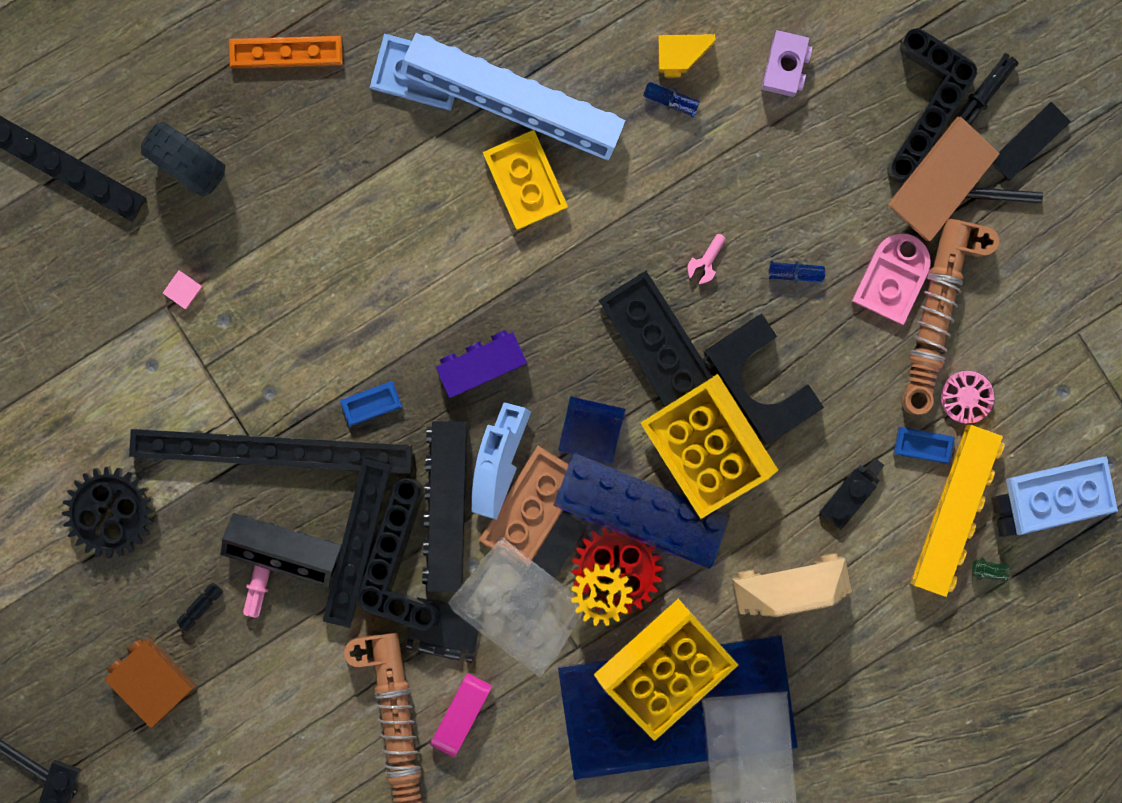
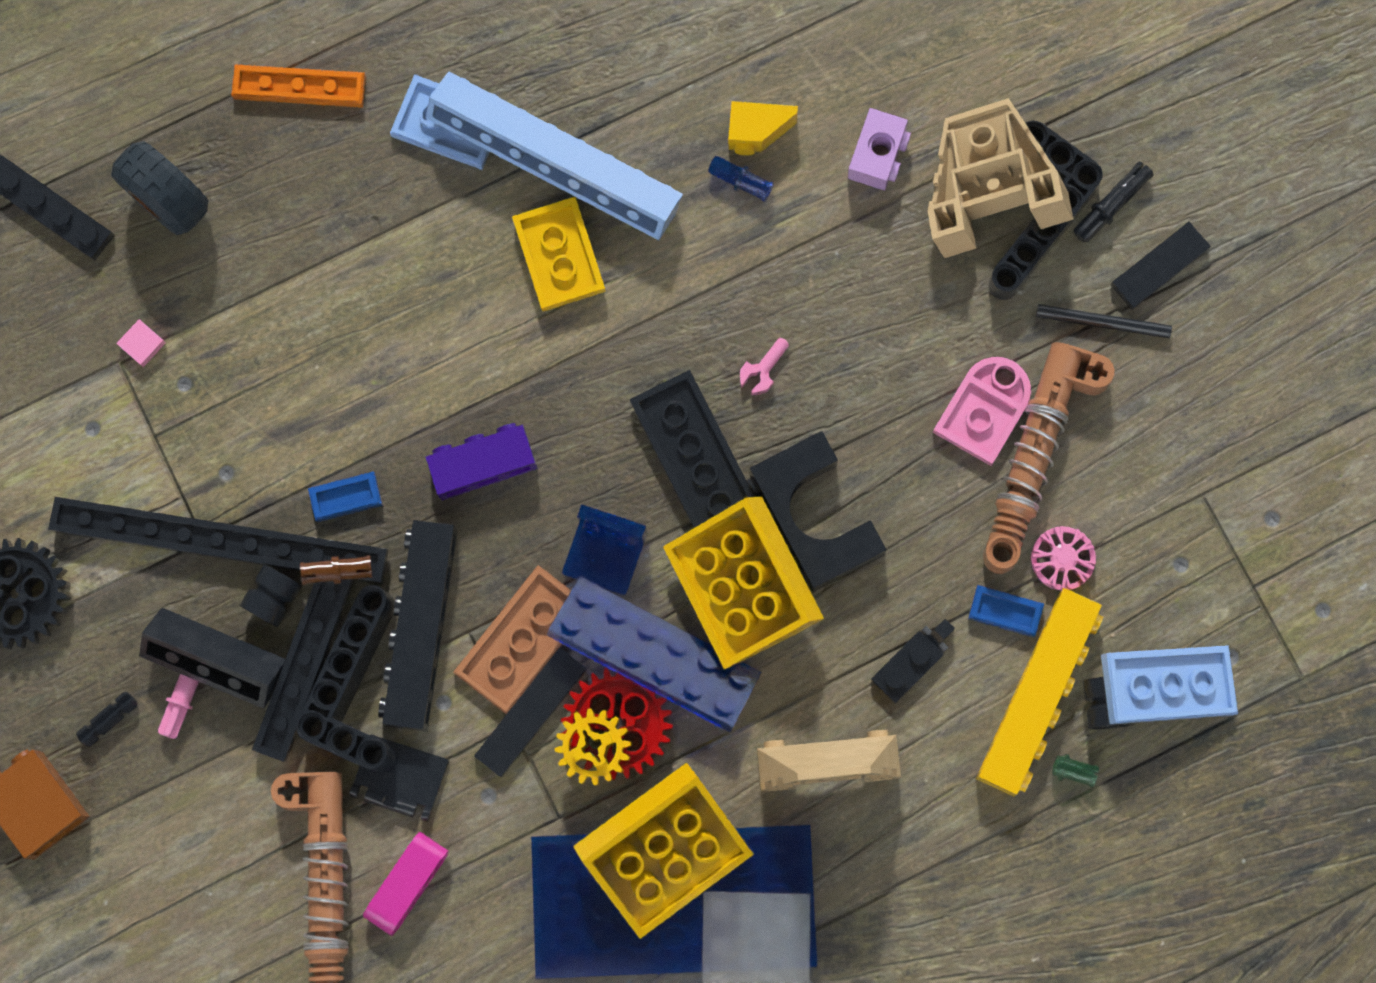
camera: 15 degrees right, 10 degrees down
(321, 494) = (269, 597): none -> black wheel
(375, 471) = (336, 570): none -> reddish brown pin
(493, 465) = (481, 583): light blue slope -> none
(518, 607) = (490, 754): clear slope -> none
(796, 272) = (869, 390): clear blue axle -> none
(882, 72) = (987, 168): none -> tan wedge
(943, 179) = (1053, 295): nougat tile -> none

